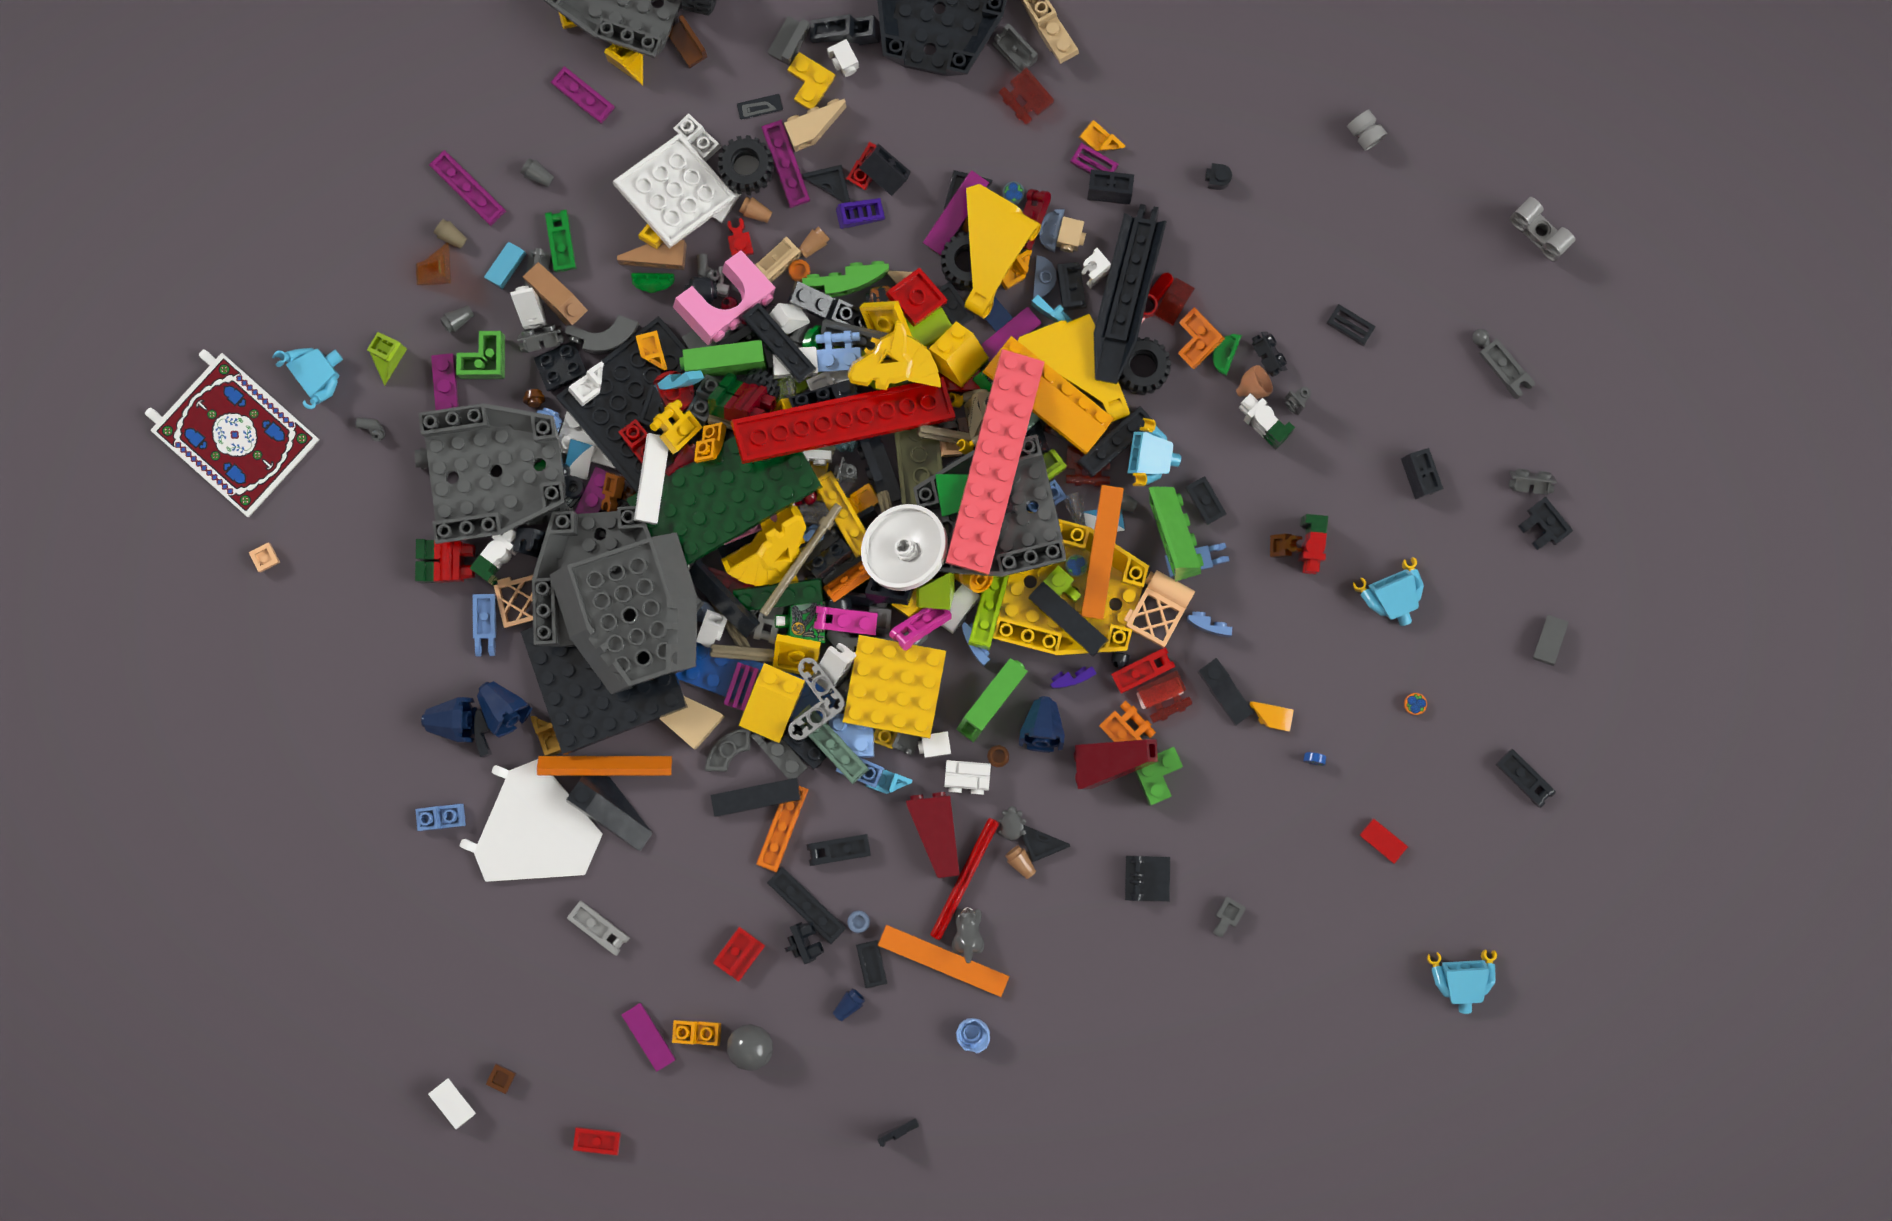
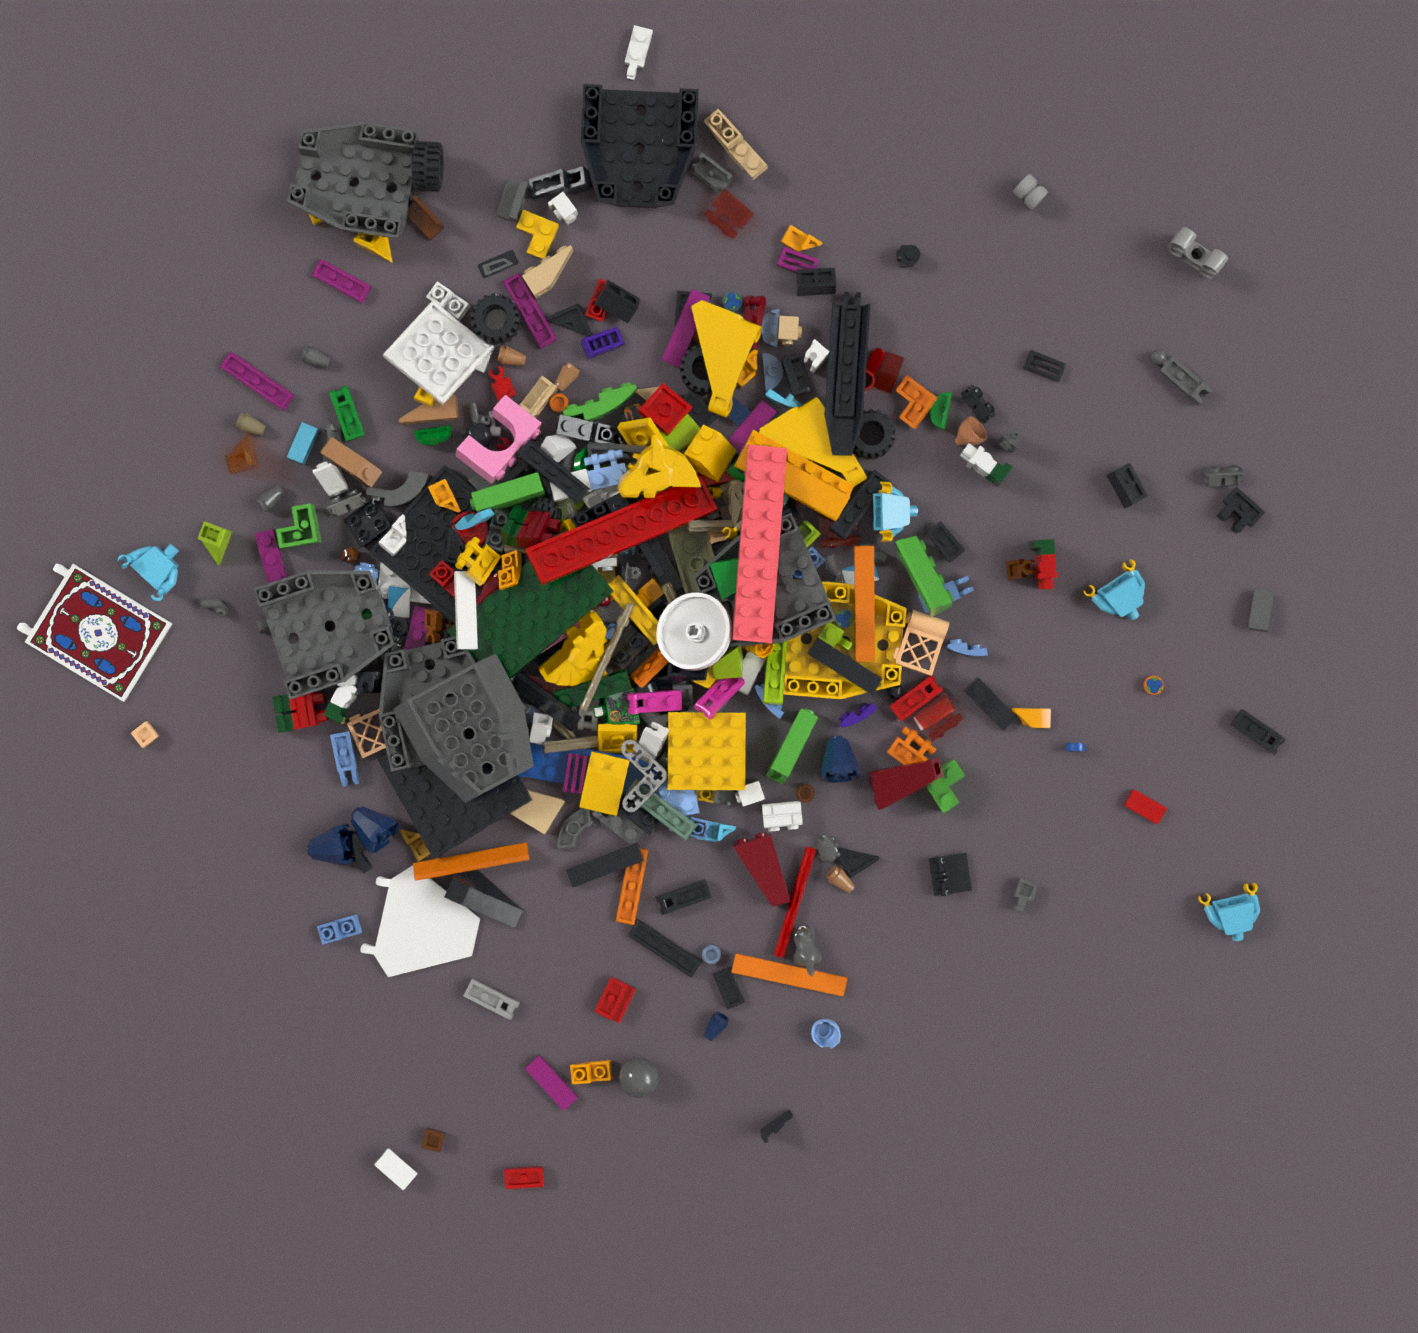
camera: 15 degrees left, 5 degrees up
(800, 943) = (666, 982): black hips -> none

